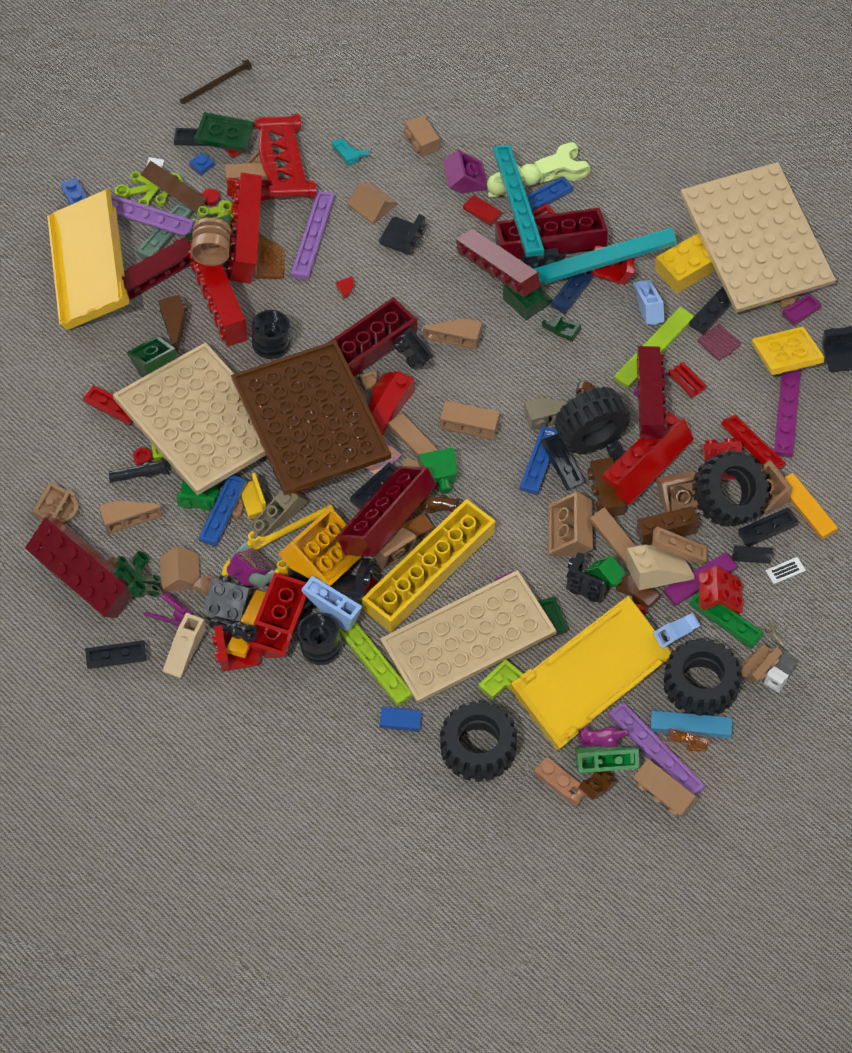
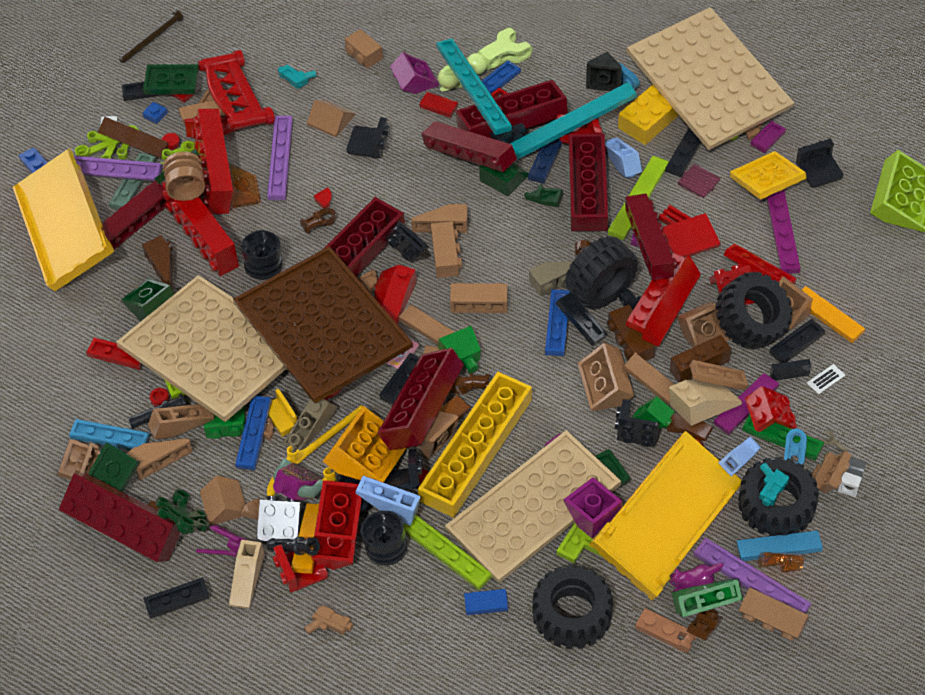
camera: 10 degrees left, 5 degrees down
(84, 518) = (114, 467): none -> dark green plate
(86, 484) = (102, 433): none -> dark azure tile
(154, 483) = (176, 420): none -> medium nougat slope
(249, 703) = (327, 618): none -> medium nougat piece
(333, 307) = (317, 219): none -> reddish brown connector
(450, 364) = (445, 249): none -> medium nougat brick
(521, 649) = (592, 506): none -> magenta slope
(606, 322) = (588, 182): none -> dark red brick
(653, 210) = (603, 73): none -> pearl dark grey slope
(676, 218) = (629, 76): none -> dark azure plate
(692, 399) = (691, 236): none -> red tile
(699, 665) = (775, 484): none -> teal piece
(730, 633) = (796, 449): none -> dark azure plate

